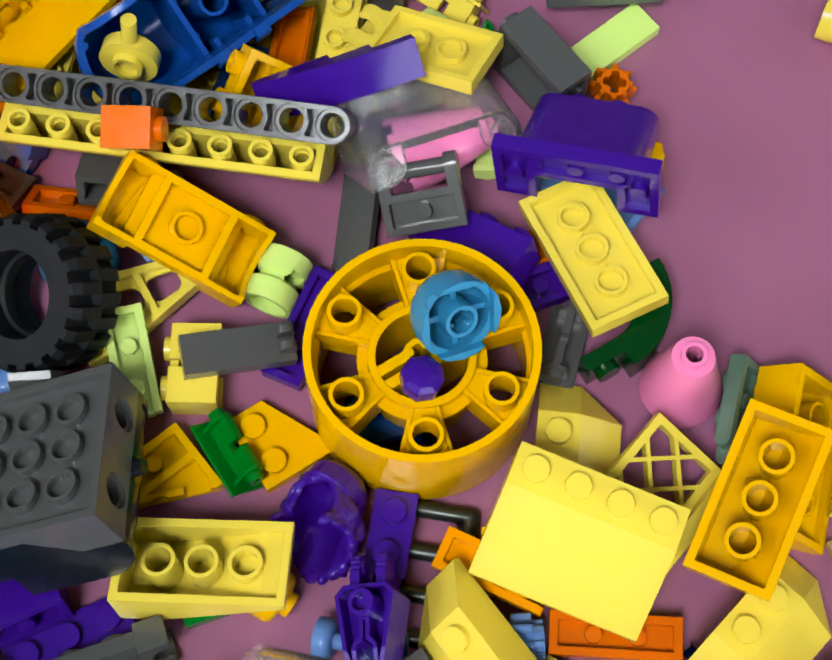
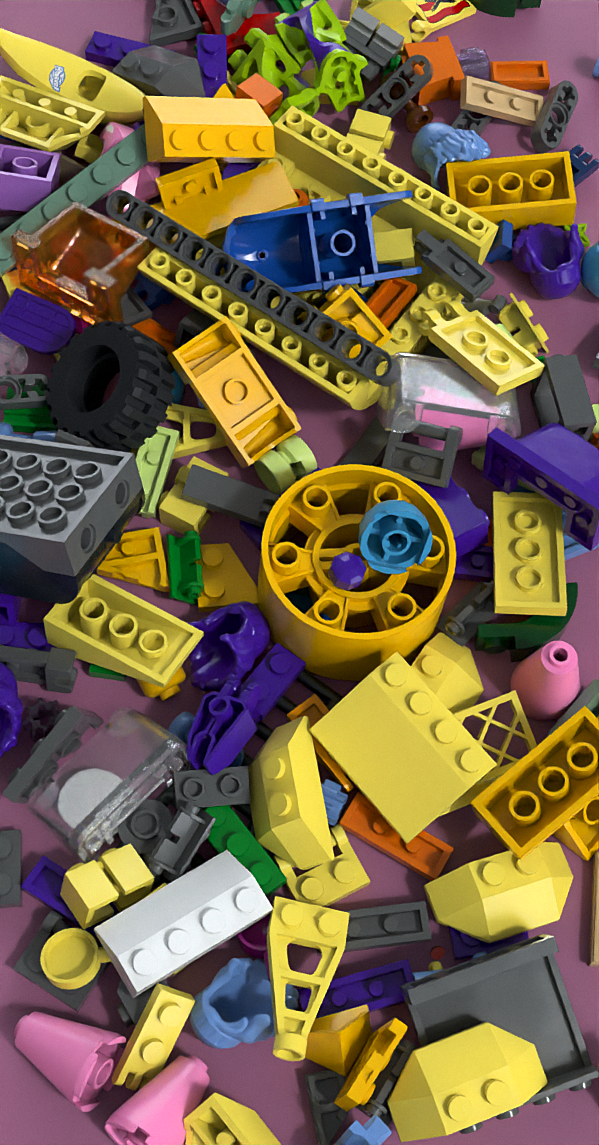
camera: 20 degrees right, 5 degrees down
(128, 53) = (263, 253): light yellow piece -> none
(133, 128) = (235, 301): orange brick -> none
(346, 75) = (411, 338): dark purple slope -> none

